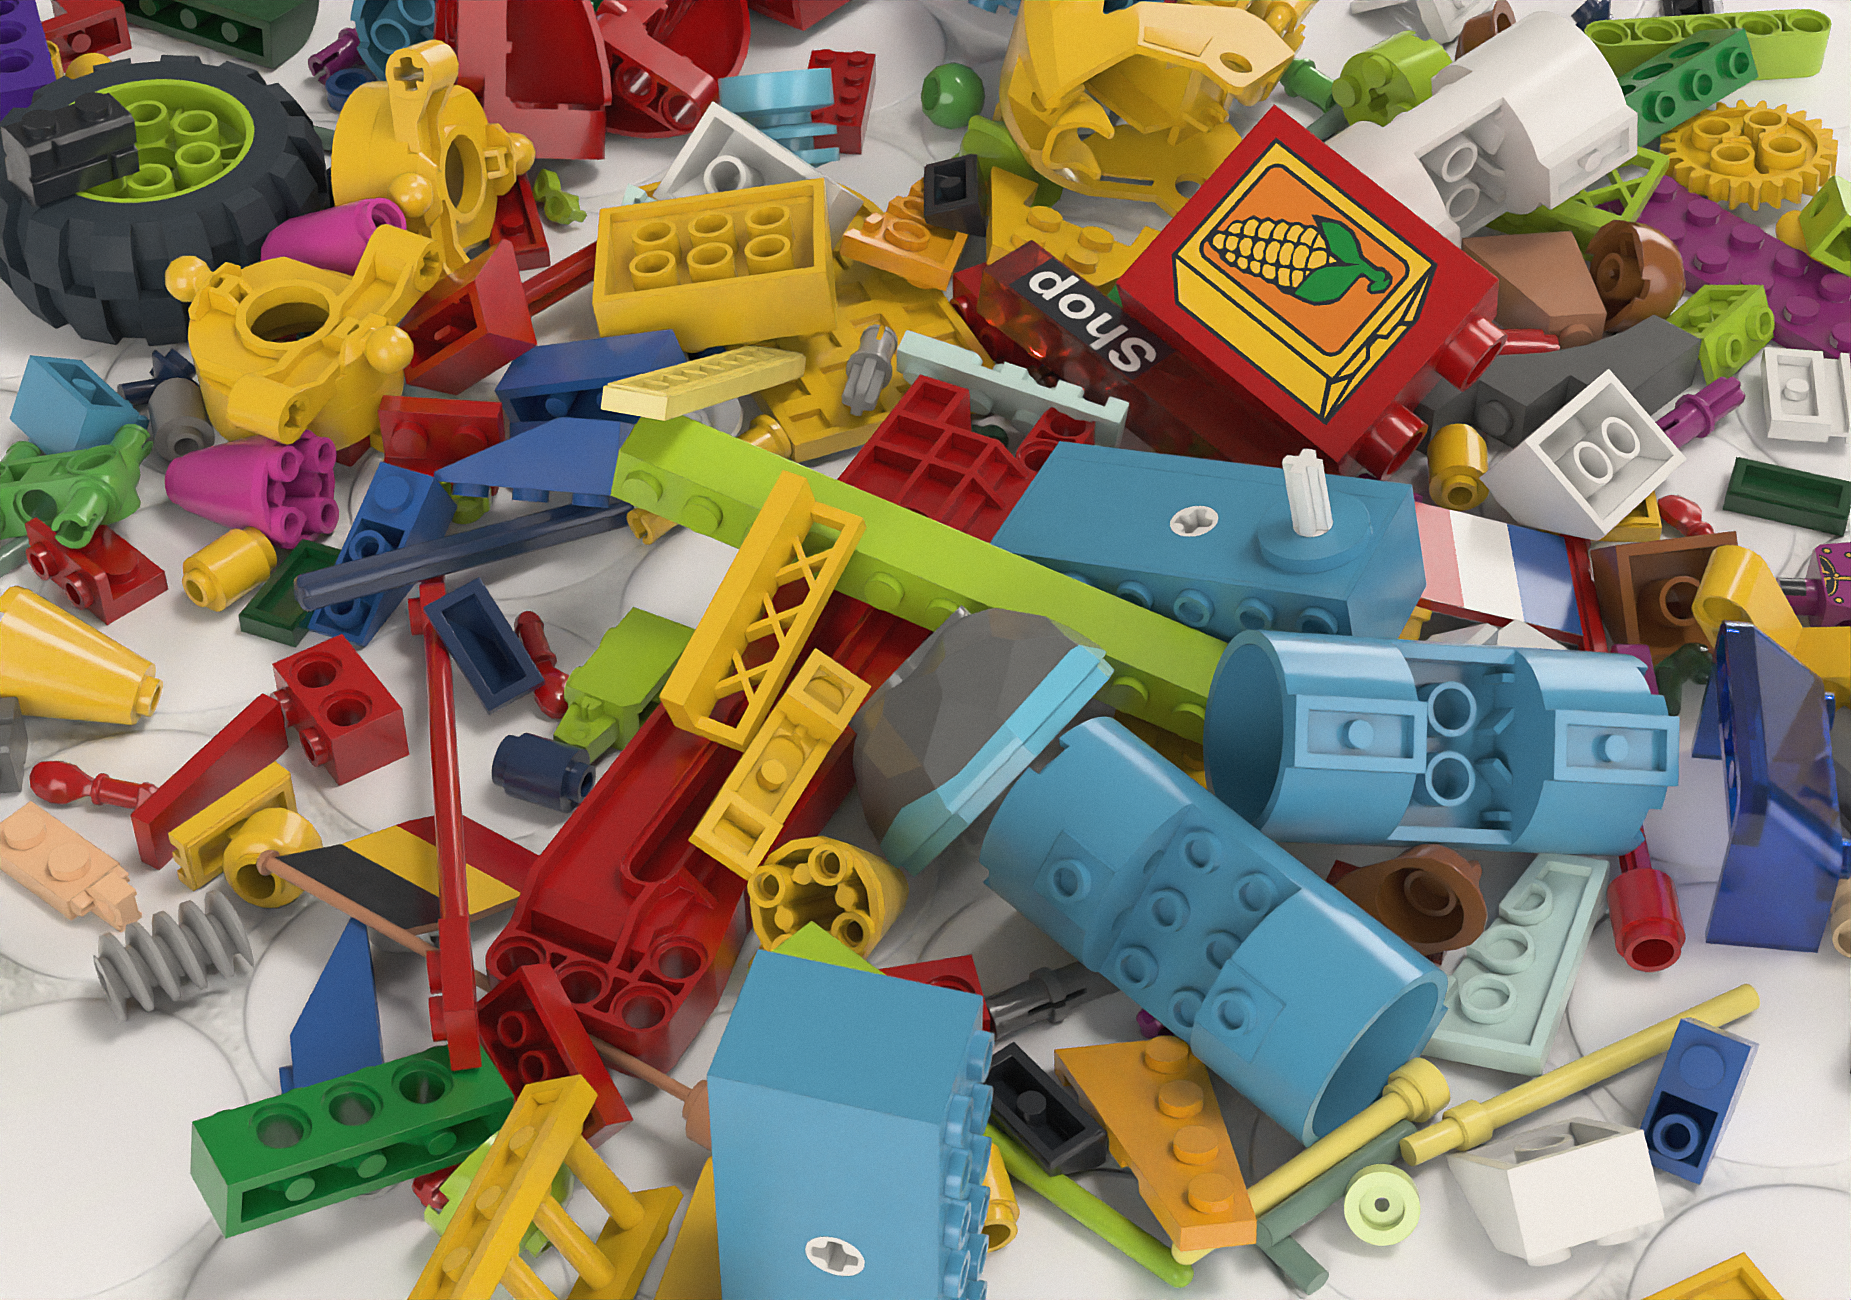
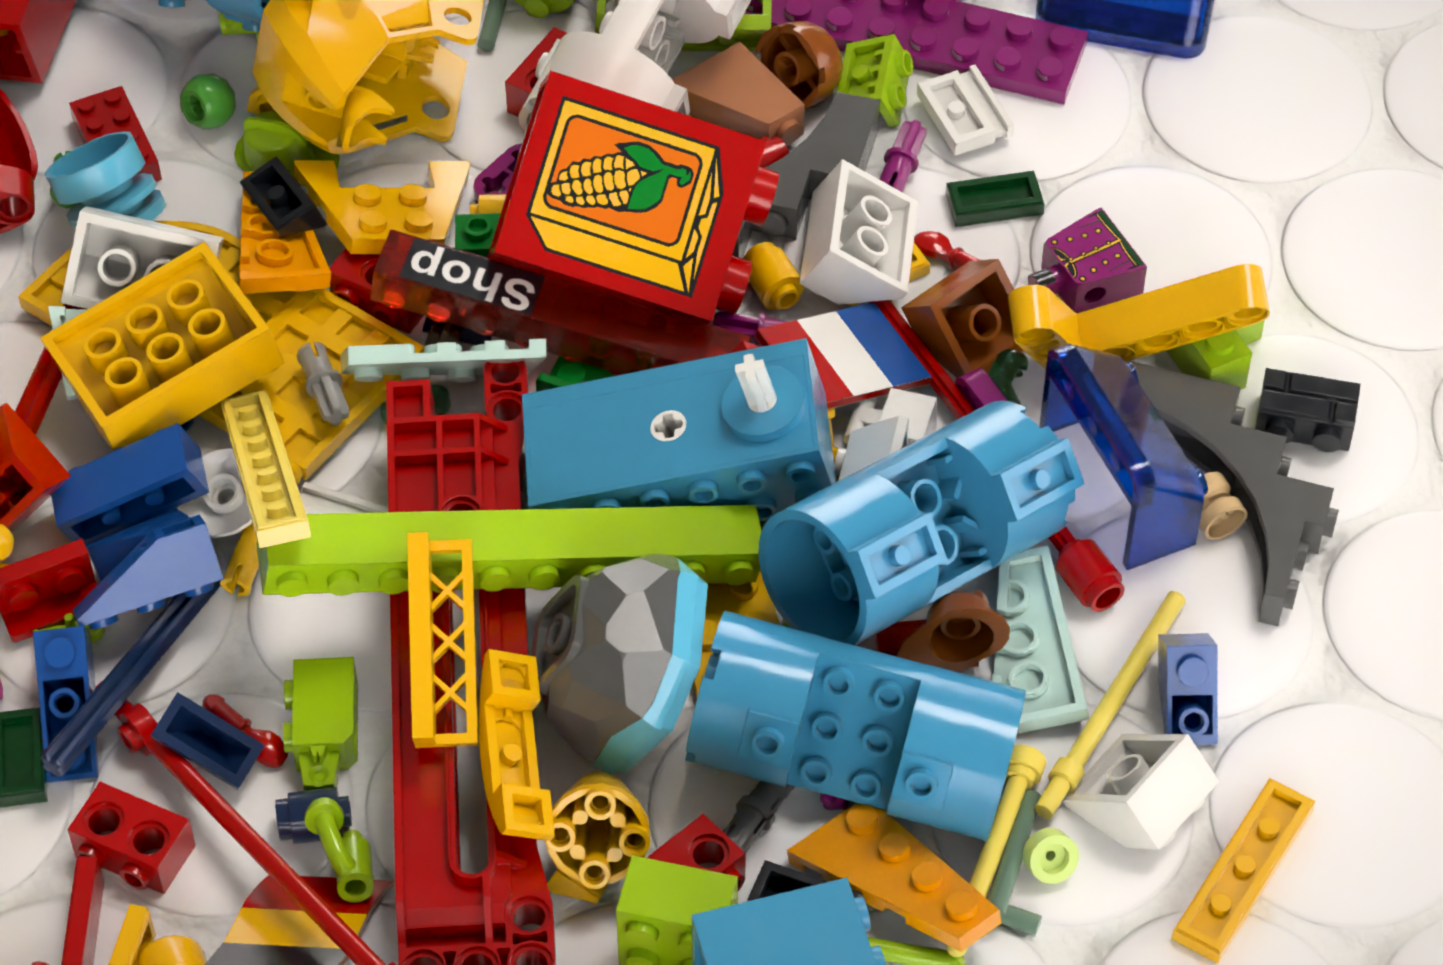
camera: 30 degrees left, 10 degrees up
(540, 770) = (348, 855): none -> lime plant

